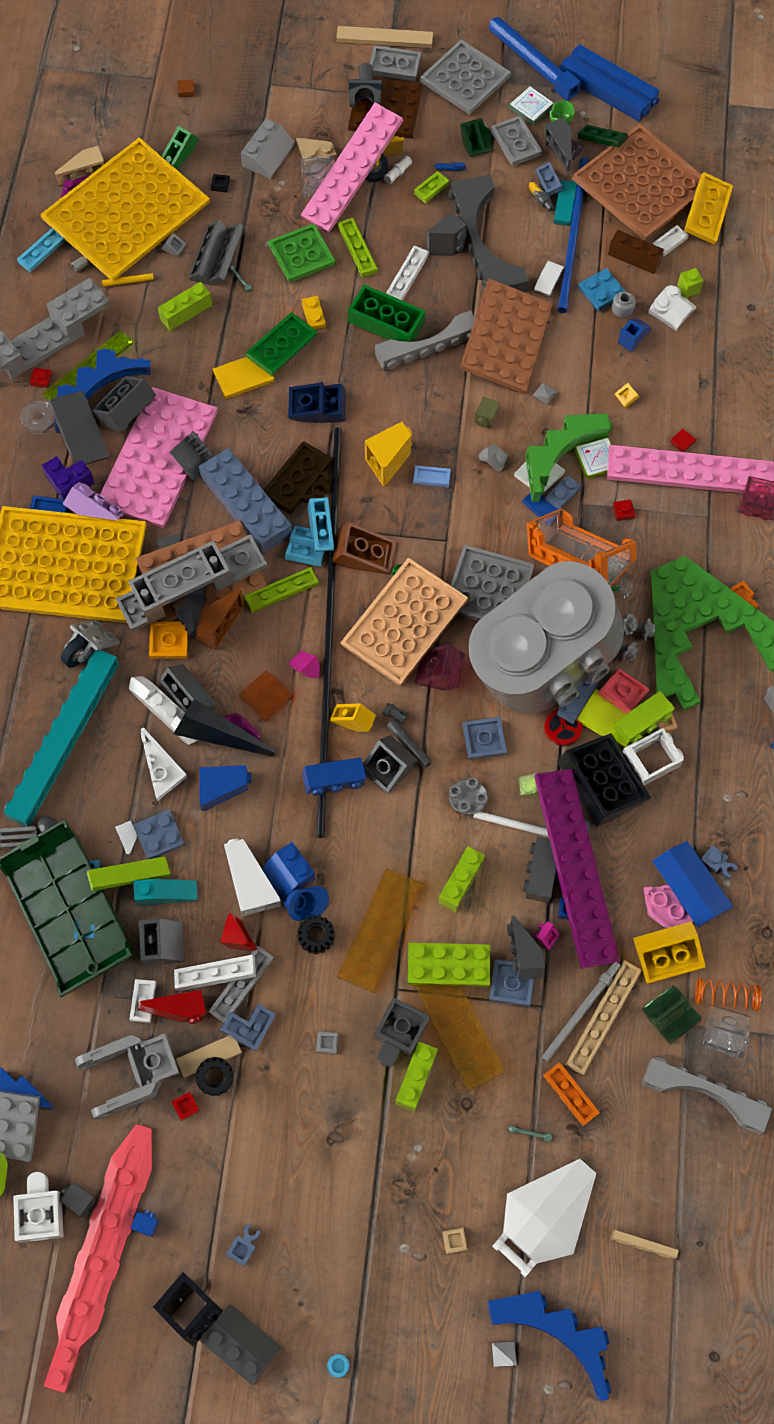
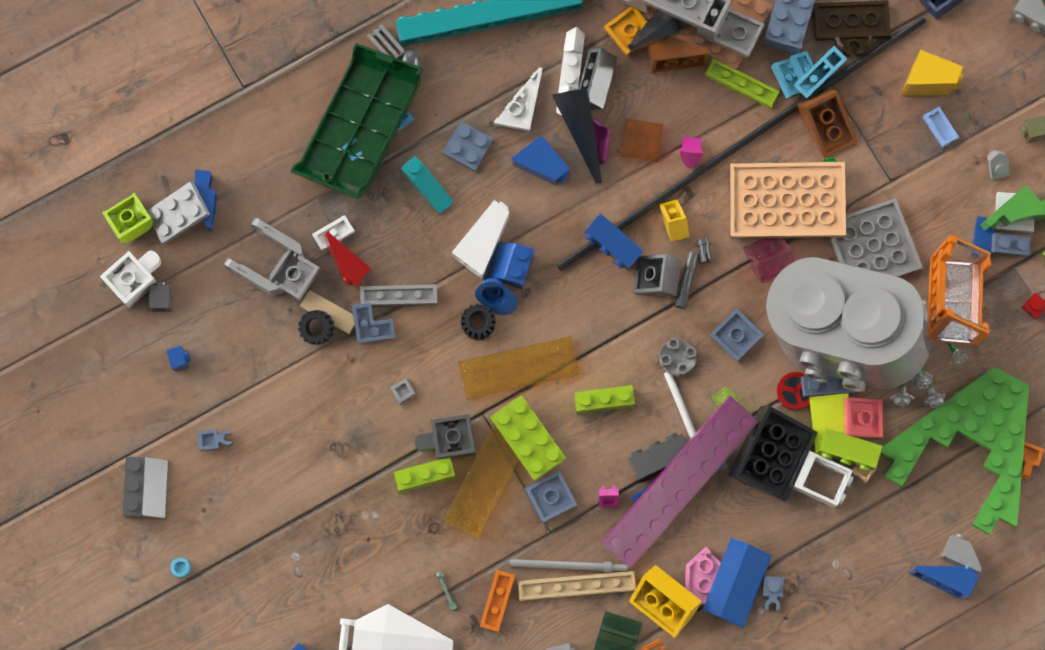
camera: 55 degrees right, 10 degrees up
(101, 1252) = (140, 342): coral plate -> none
(127, 835) = (450, 123): white sticker -> none
(128, 873) = (419, 147): lime tile -> none
(161, 941) = (386, 212): dark grey slope -> none
(174, 1298) = (141, 417): black window -> none
(185, 1106) = (280, 323): red plate -> none
(215, 973) = (391, 269): white plate -> none
(236, 935) = (434, 262): red slope -> none
(454, 1240) = (326, 589): tan tile -> none
(527, 953) = (580, 492): dark grey slope -> none

